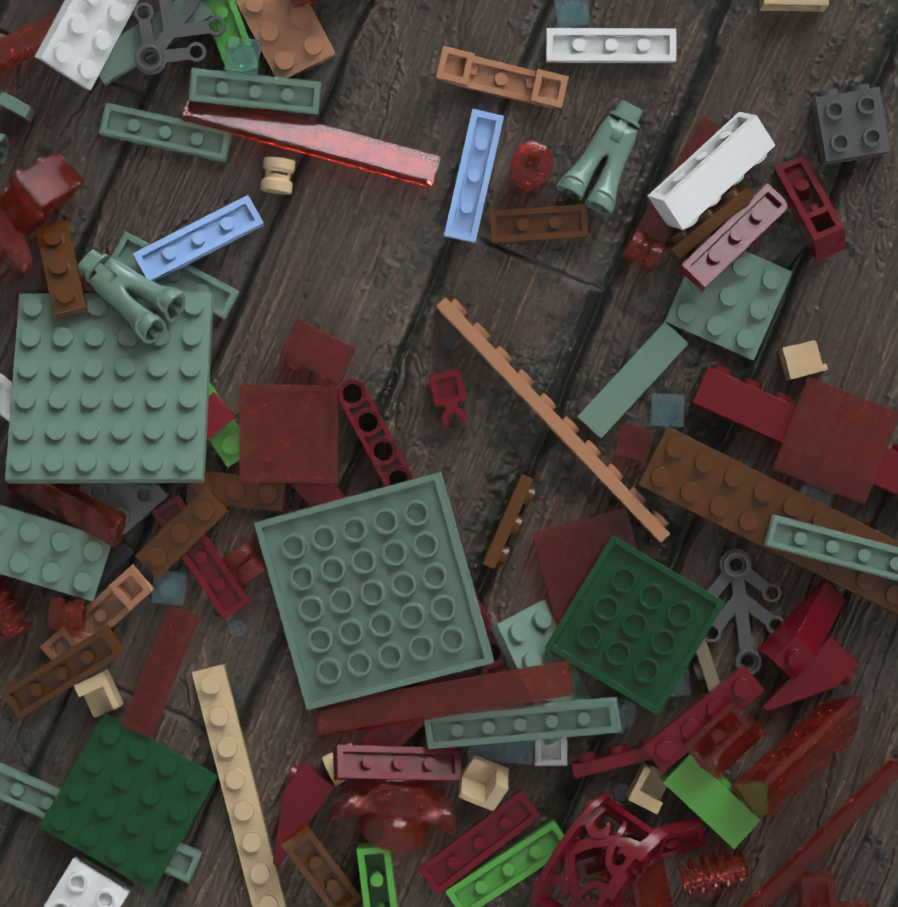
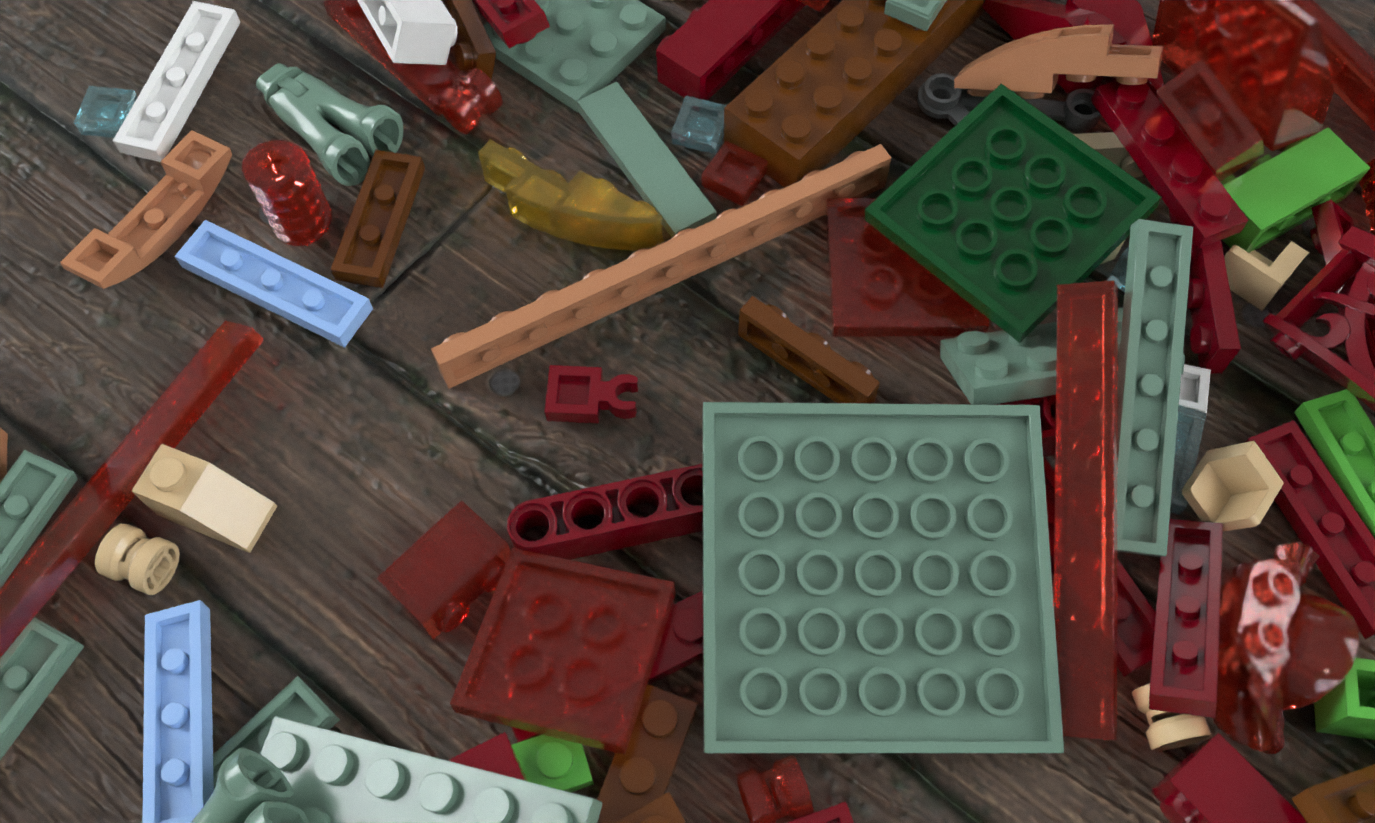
camera: 75 degrees left, 25 degrees down
(321, 199) = (203, 498): none -> tan slope
(577, 355) = (578, 211): none -> clear yellow slope
(760, 634) = (1035, 61): none -> nougat slope

